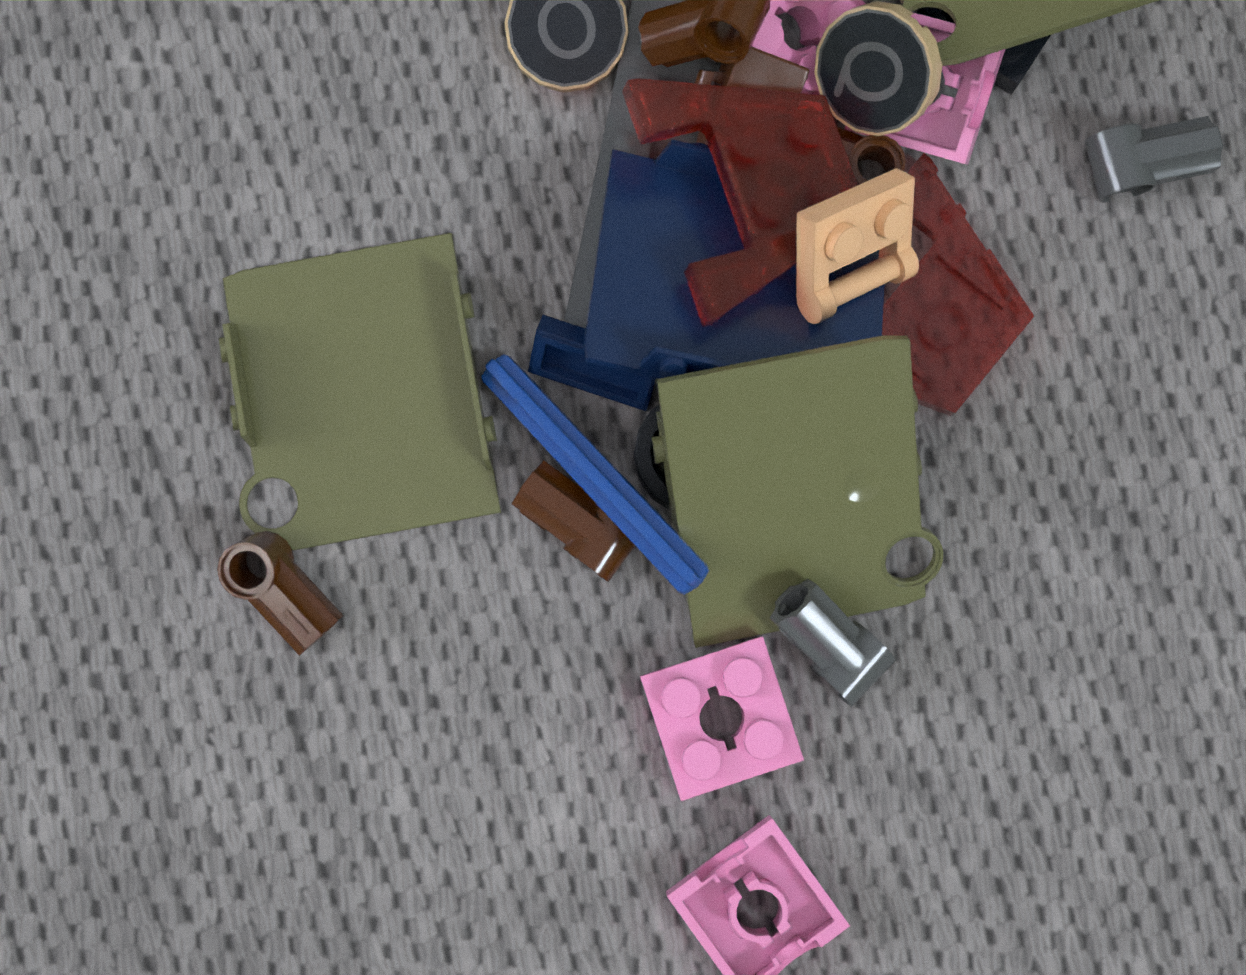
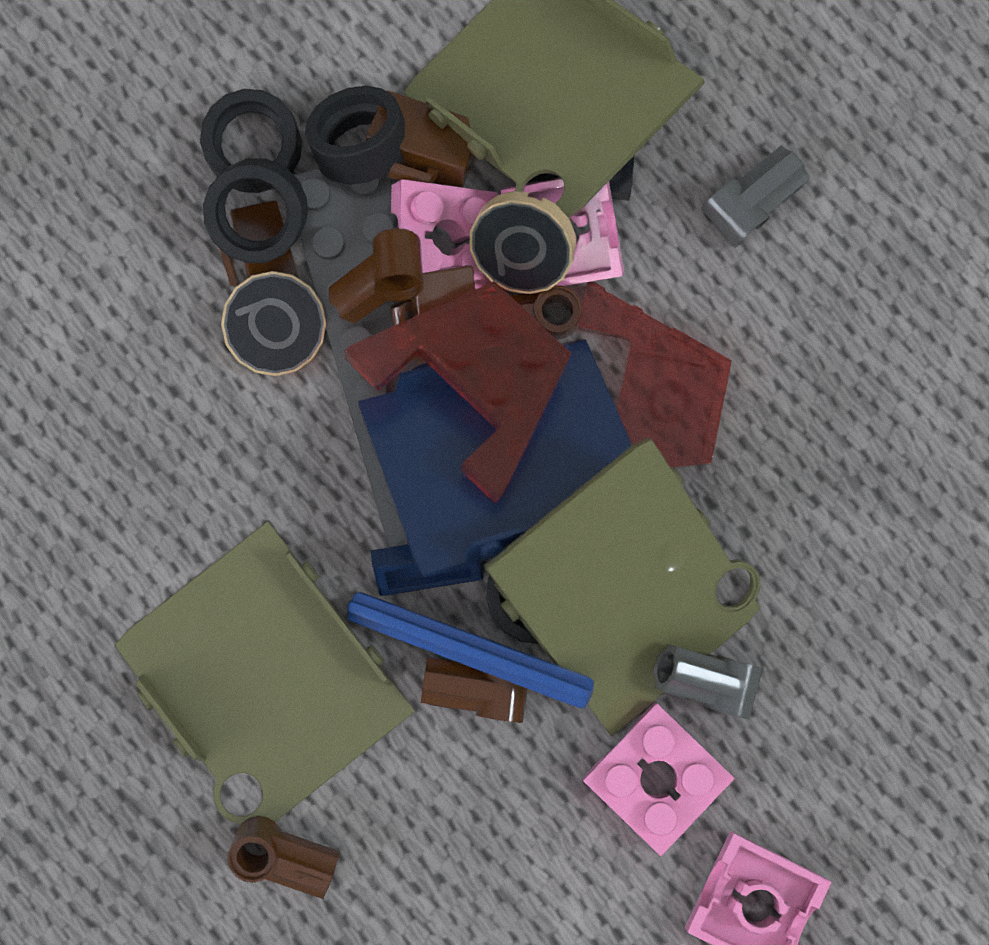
camera: 25 degrees left, 0 degrees up
(847, 229) = (563, 376): light nougat plate -> none

